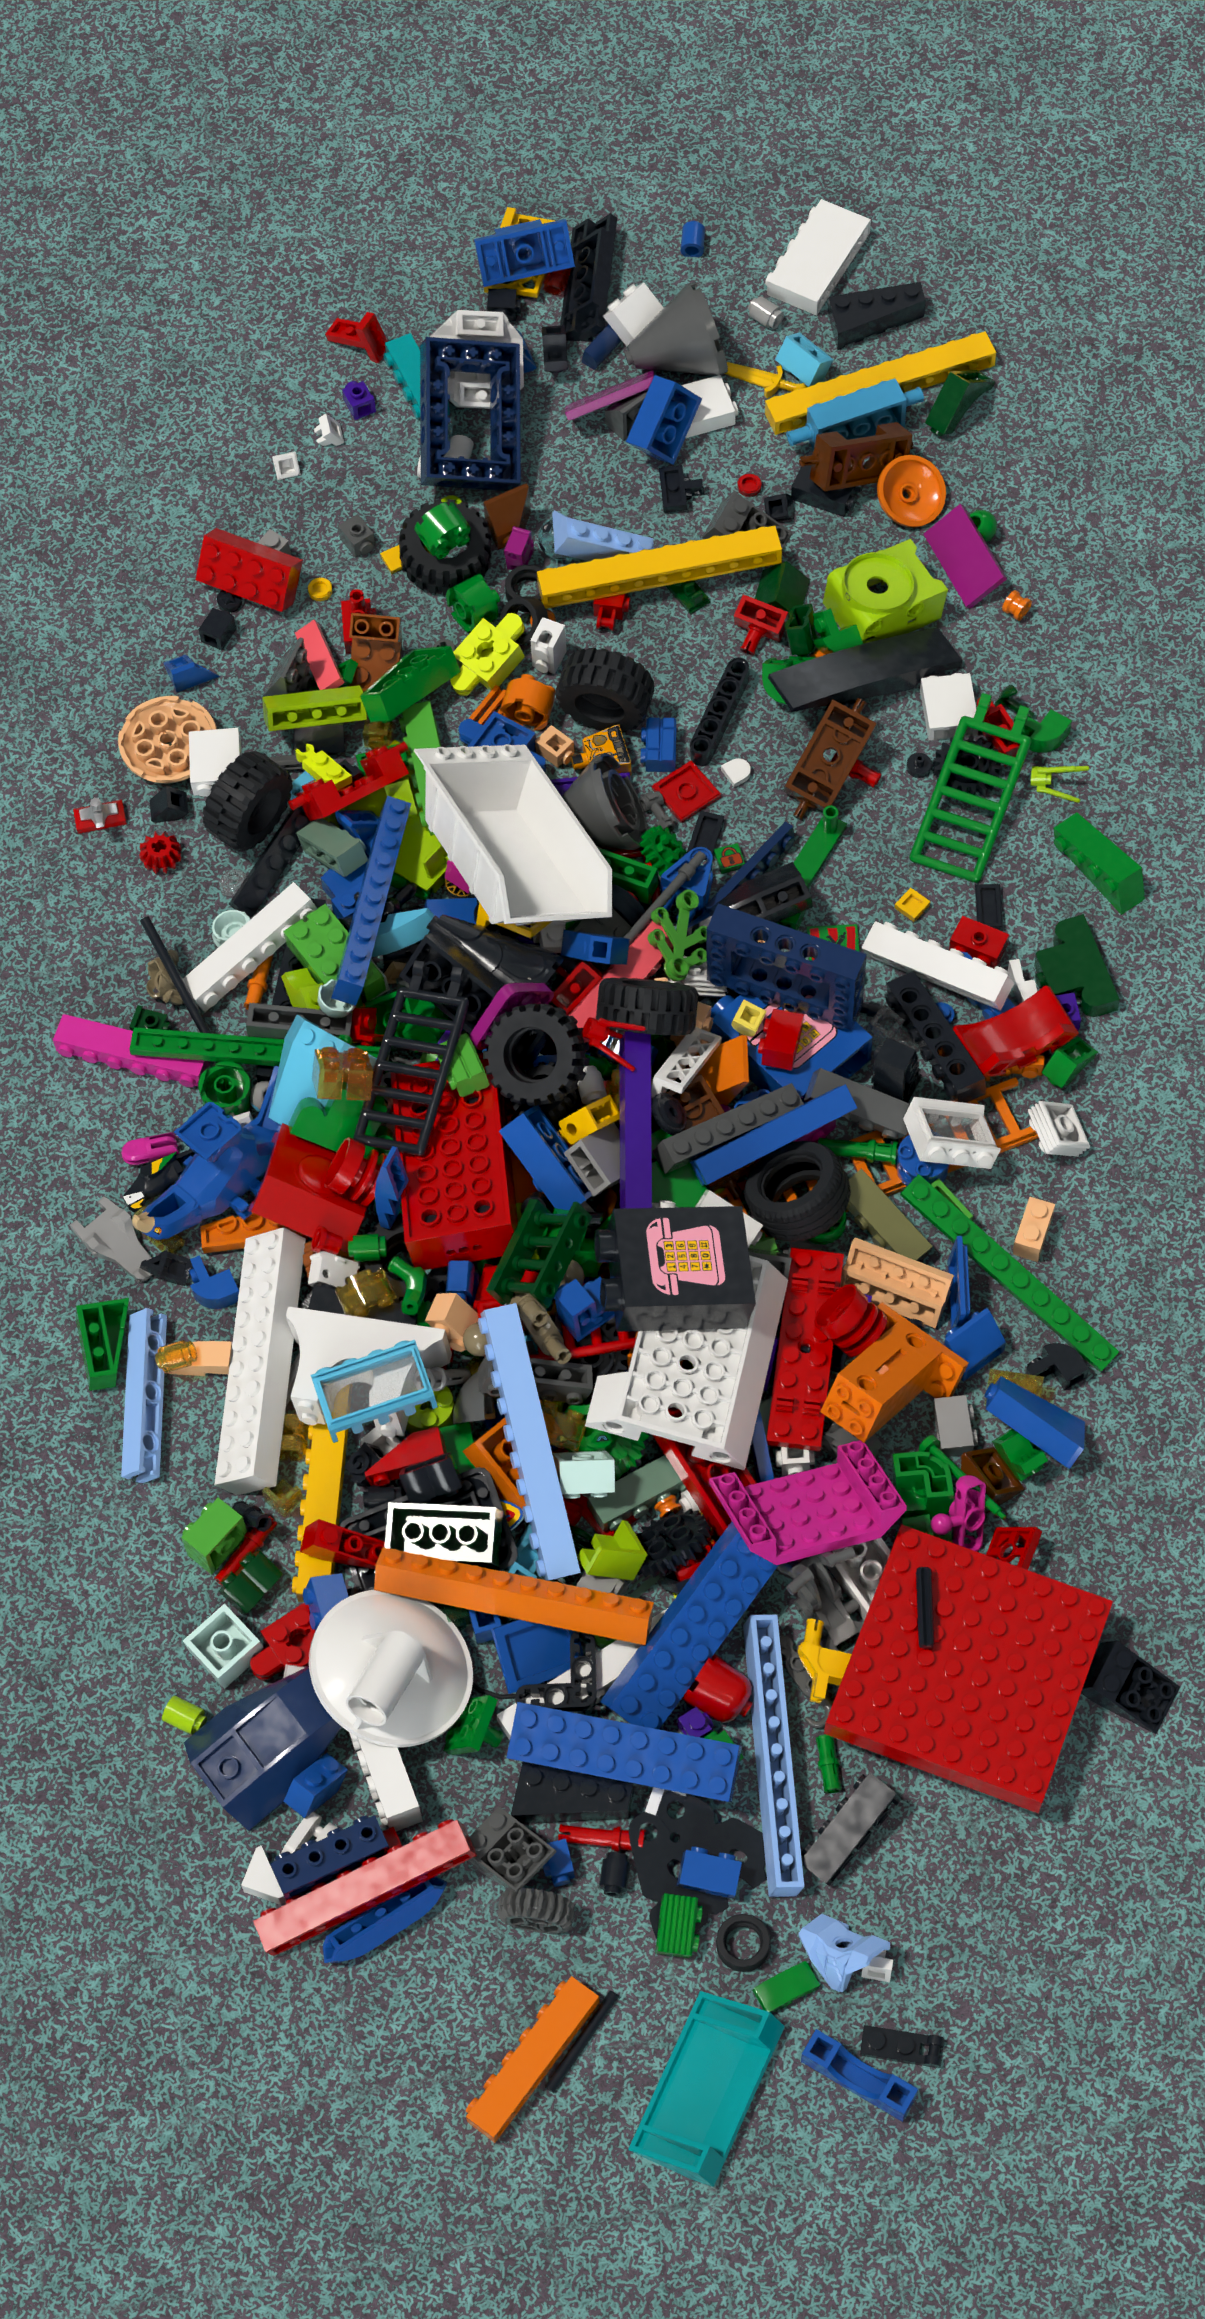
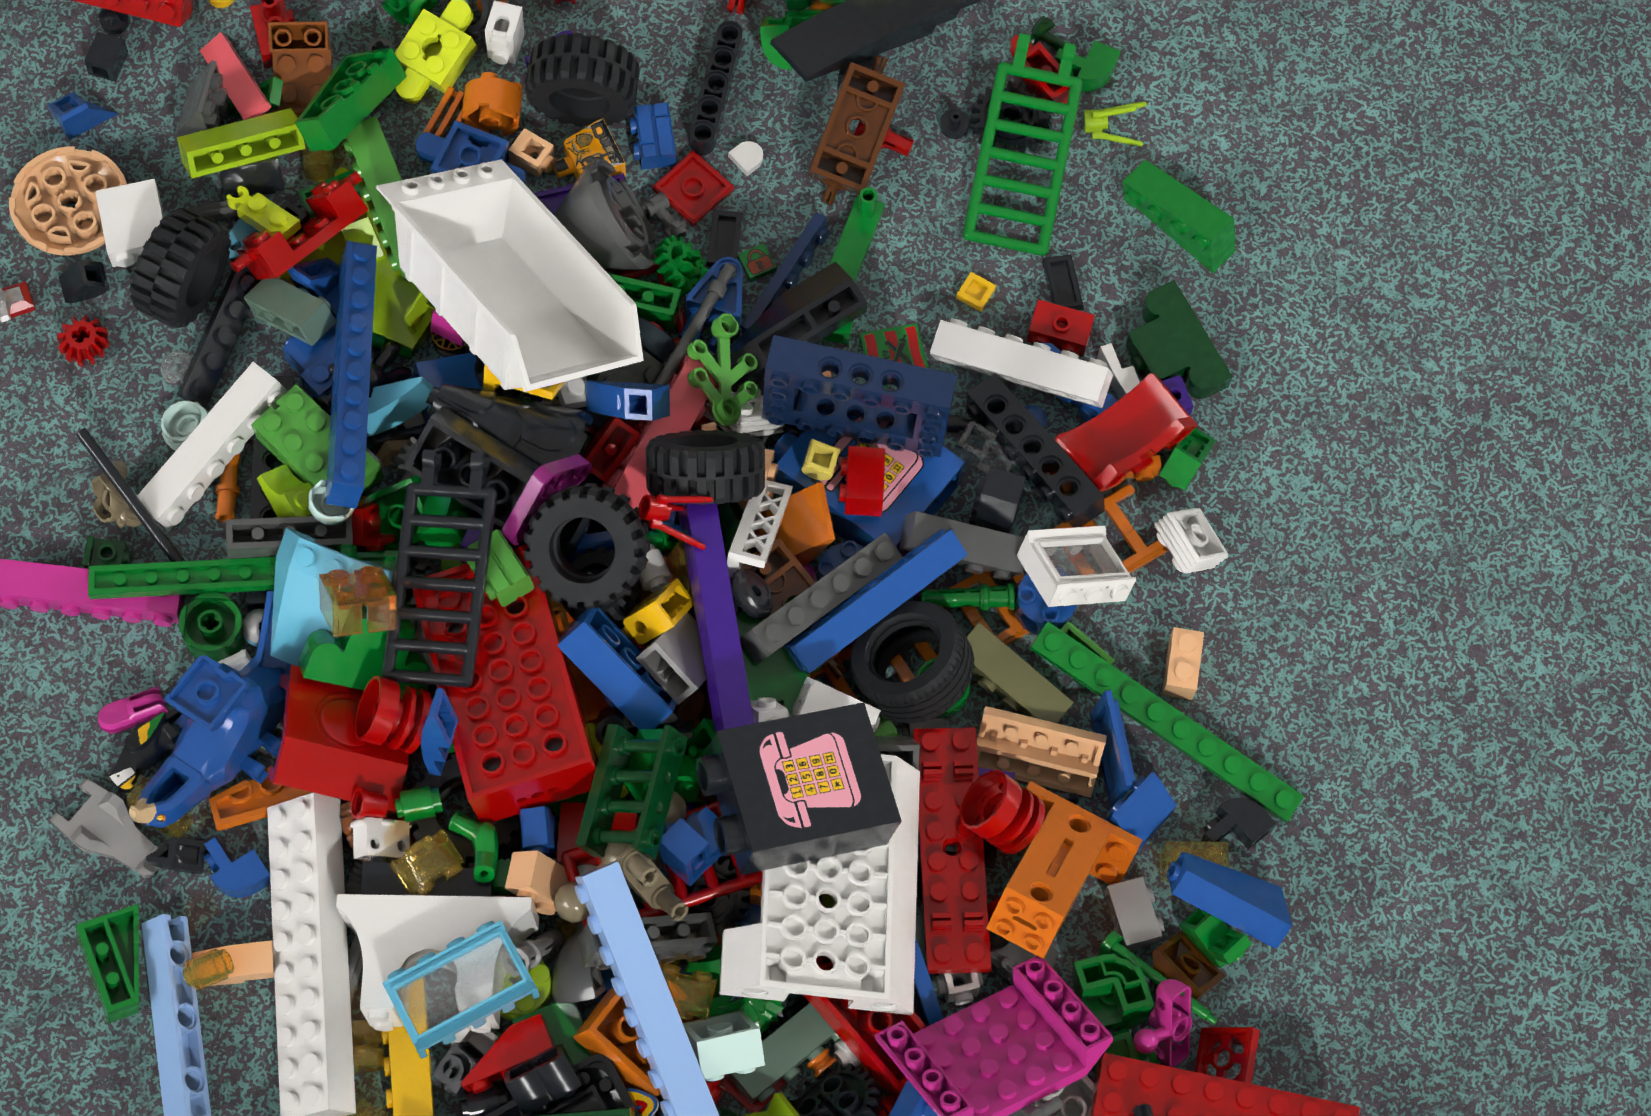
camera: 20 degrees left, 5 degrees up
(945, 702) = (975, 48): white brick -> none

